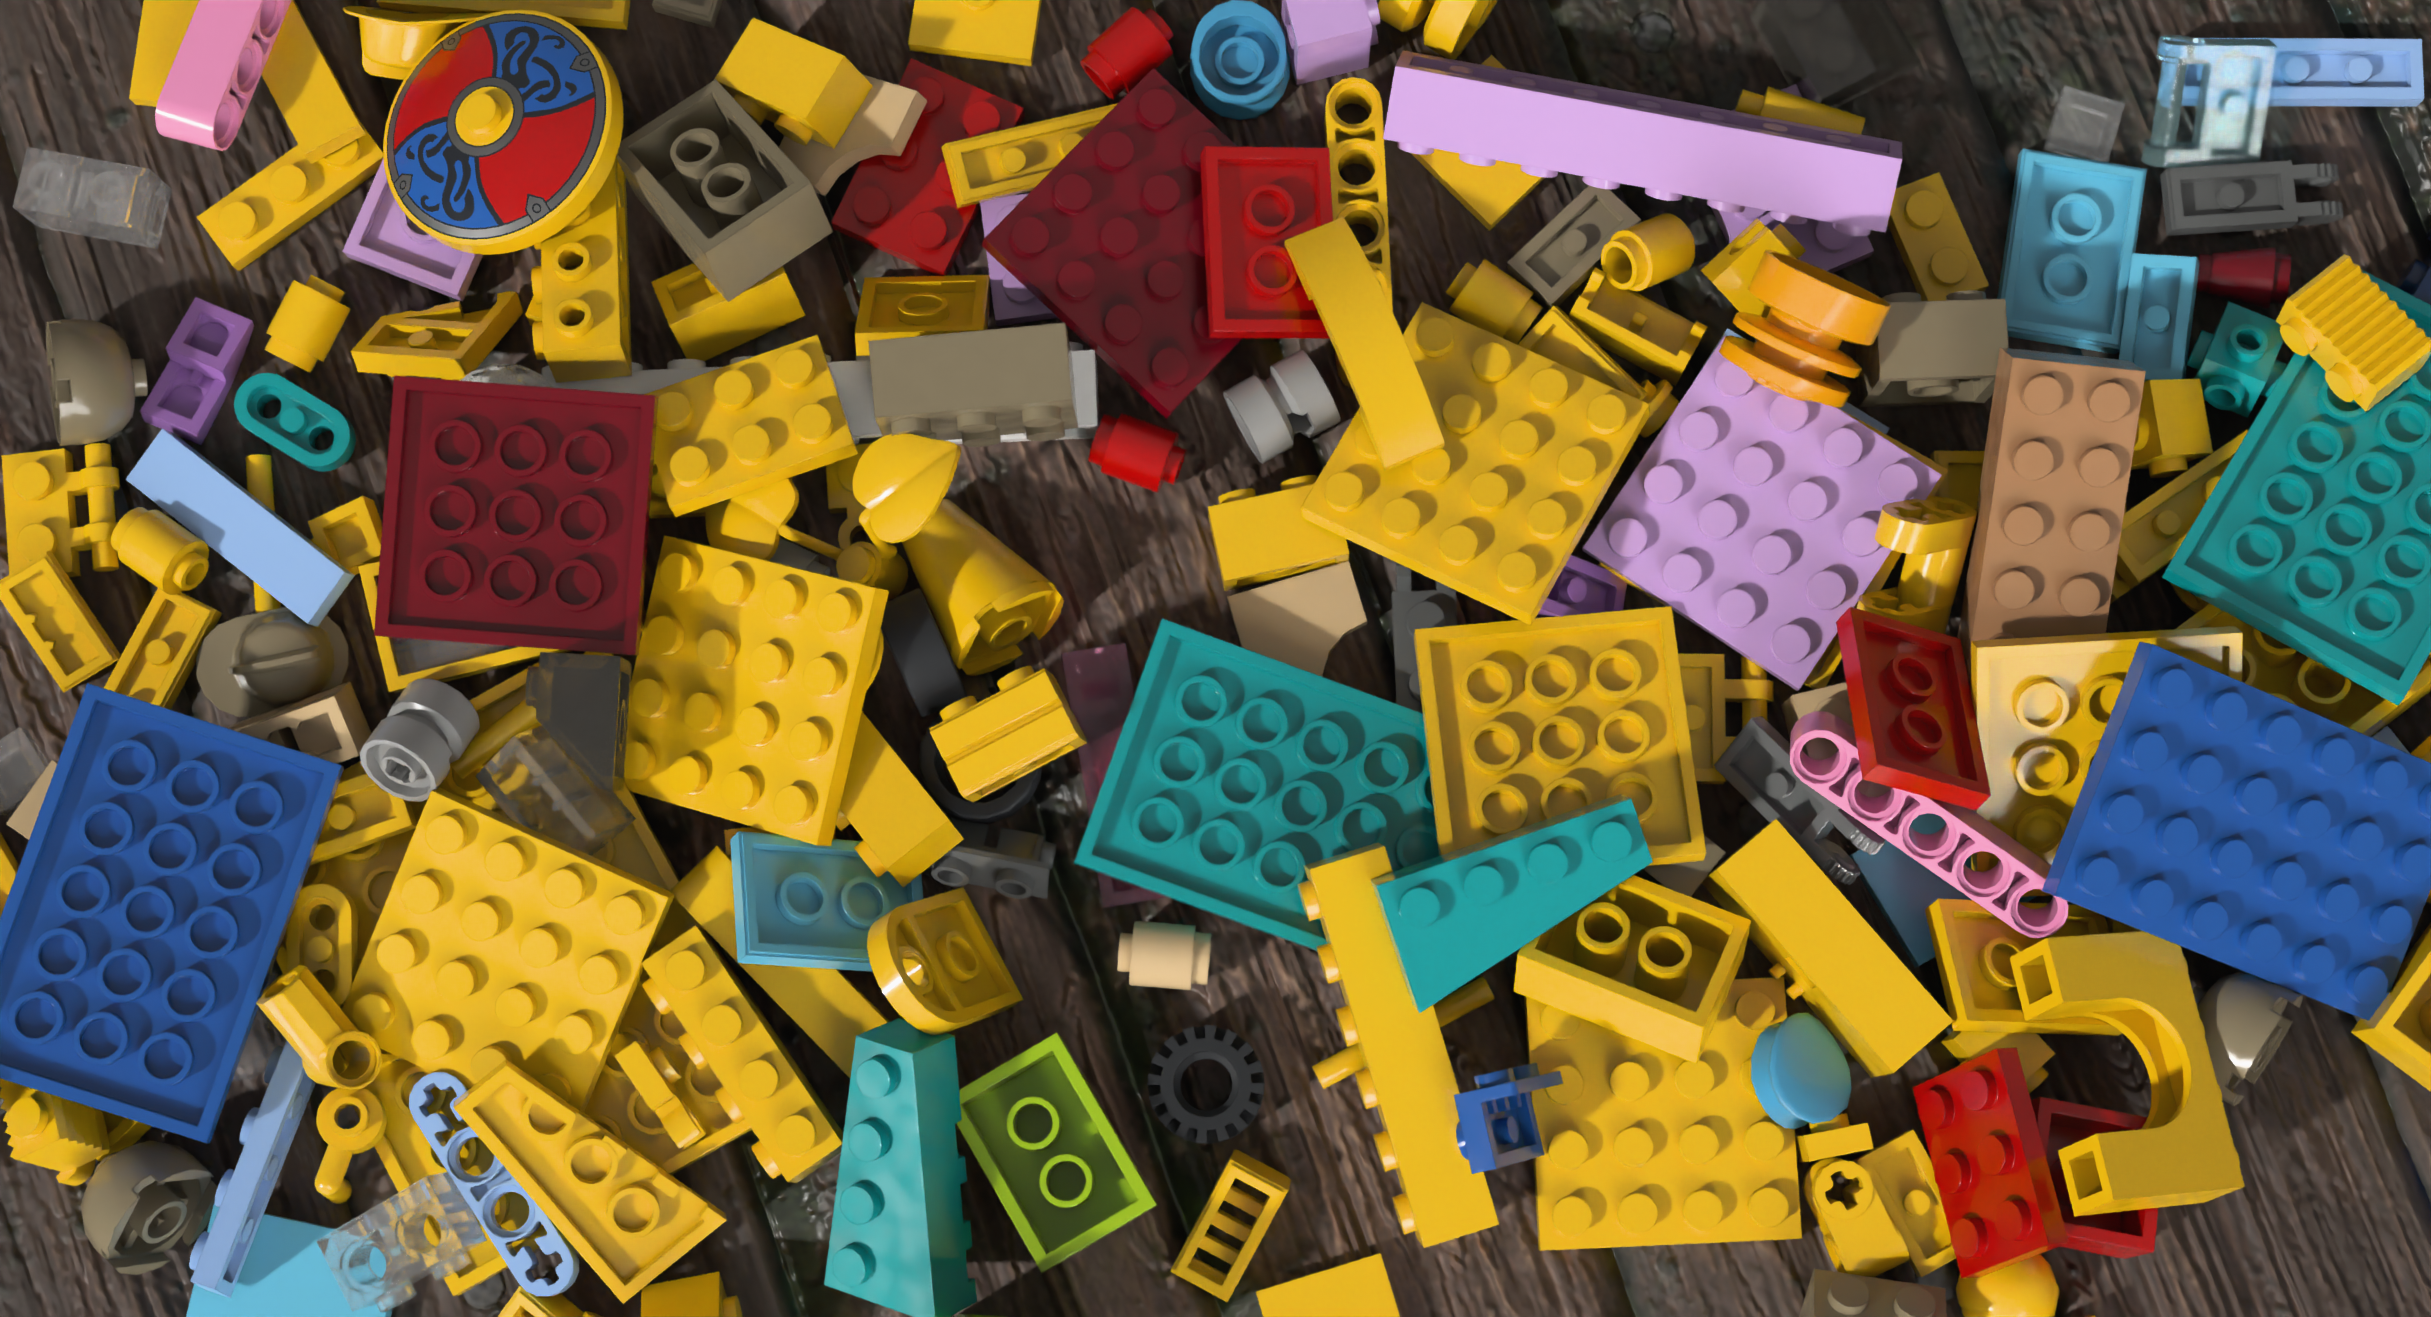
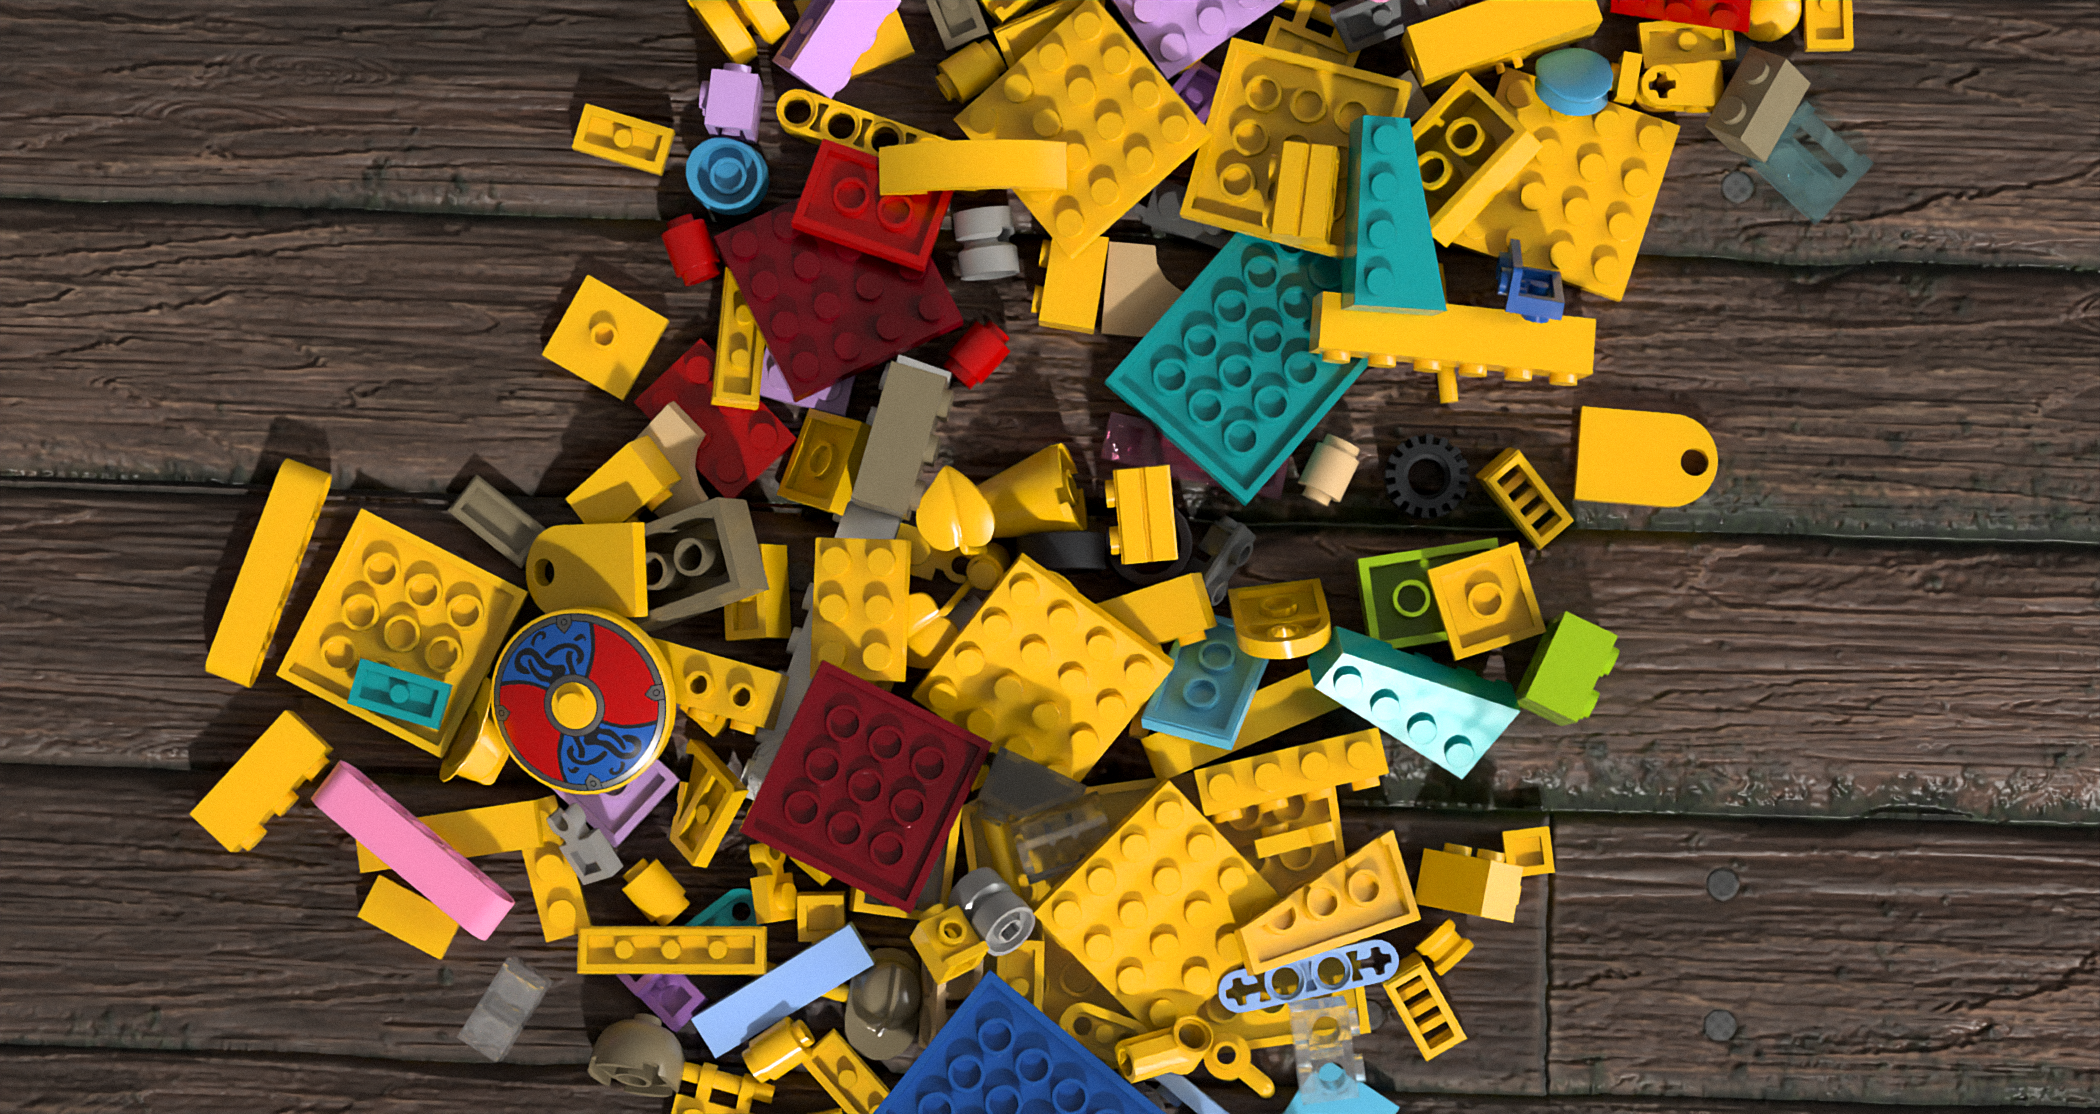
camera: 70 degrees left, 5 degrees up
(236, 369) = (672, 950): none -> yellow tile
(326, 217) = (584, 848): none -> light grey plate
(333, 703) = (945, 955): none -> yellow brick
(353, 466) = (773, 889): none -> yellow plate
(674, 84) = (591, 568): none -> yellow tile
(1062, 1221) = (1486, 601): none -> yellow plate
(1500, 769) = (1303, 193): none -> yellow brick

